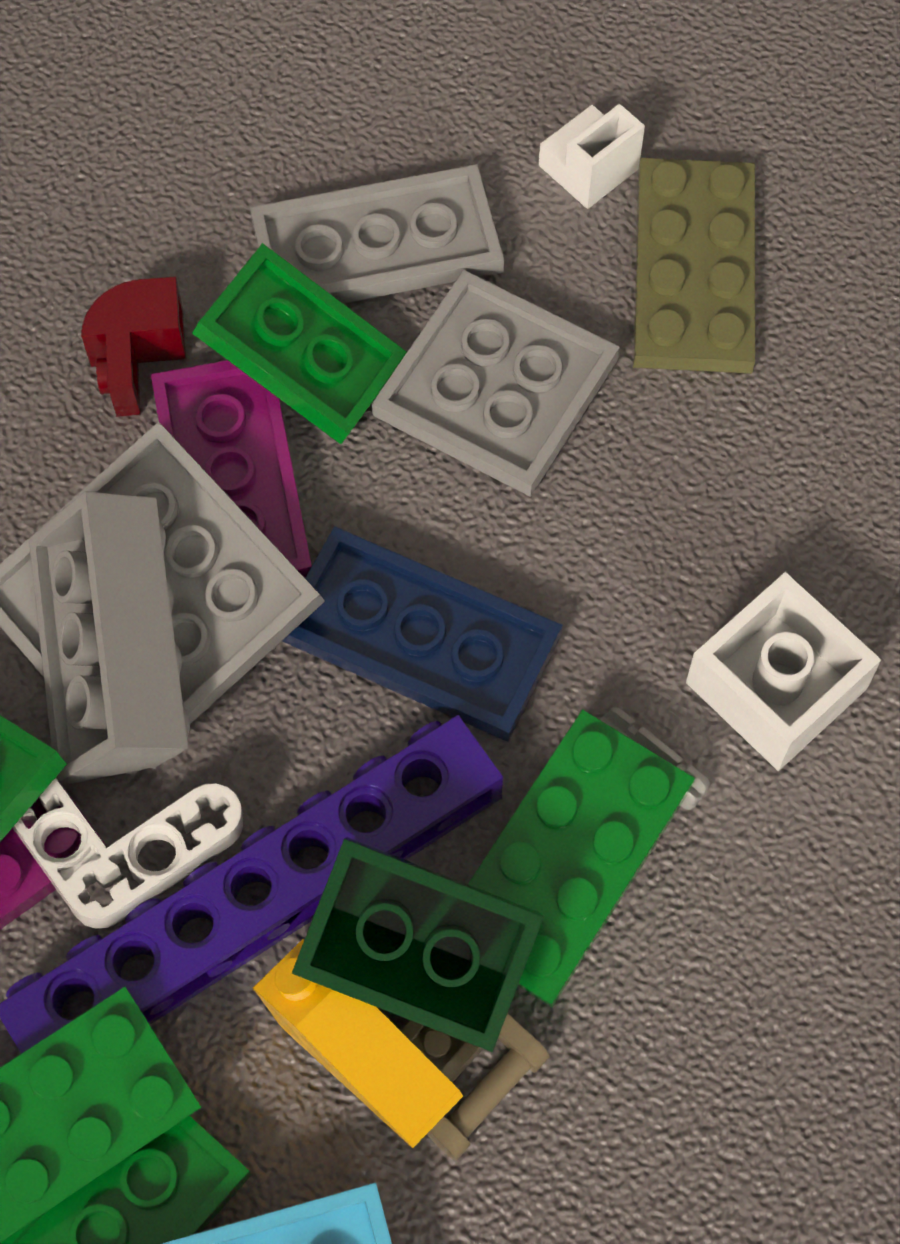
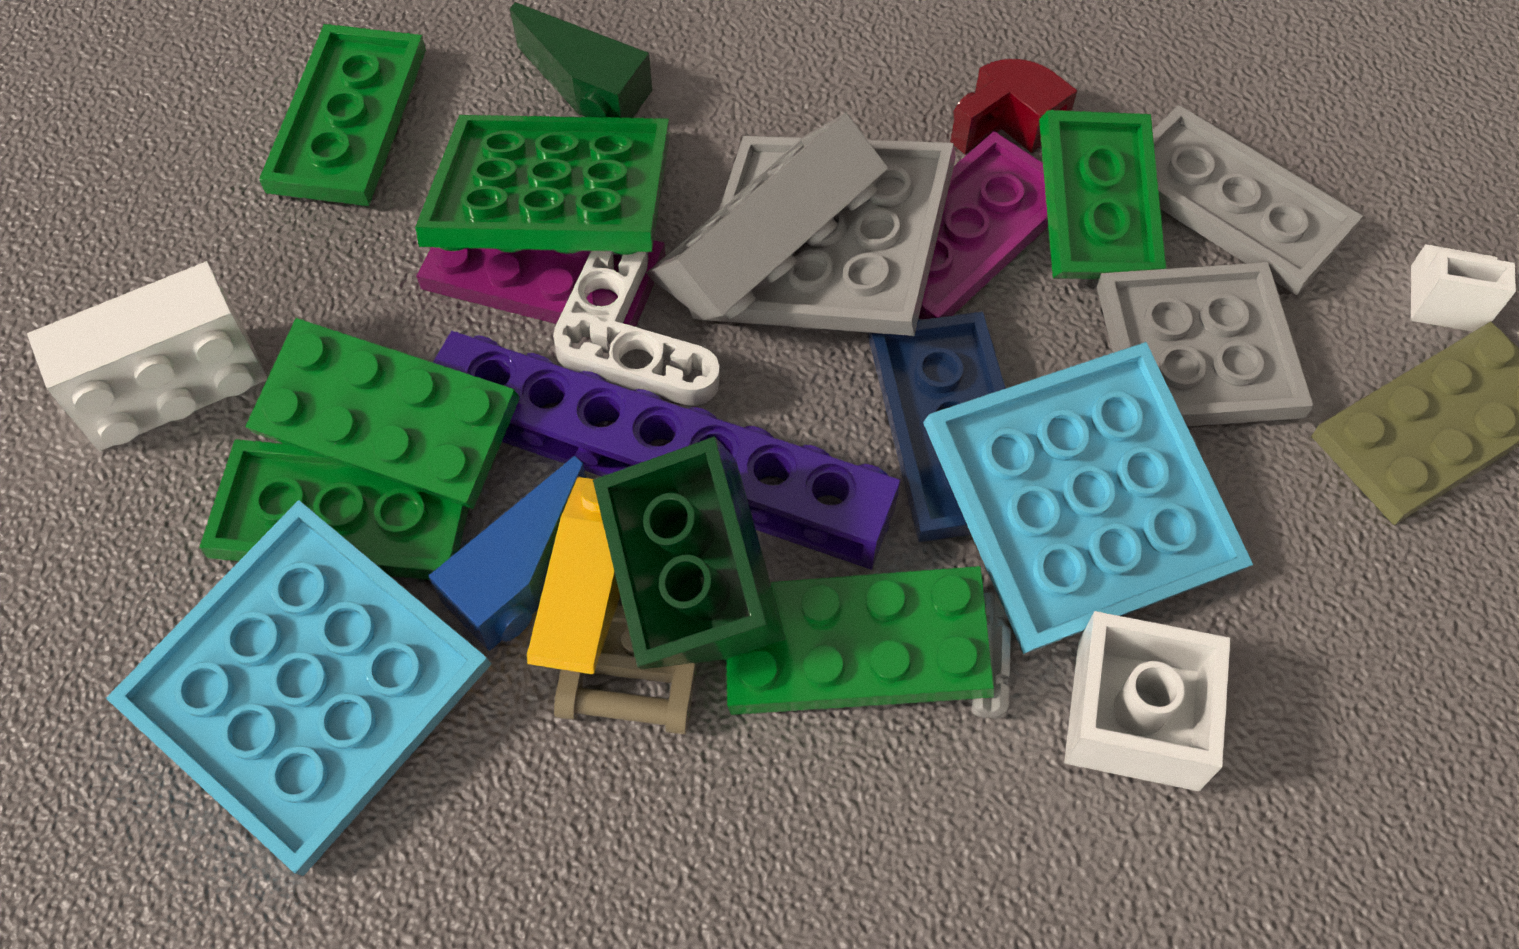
camera: 55 degrees right, 5 degrees down
(284, 1110) = (502, 571): none -> blue slope
(575, 581) = (1085, 495): none -> medium azure plate

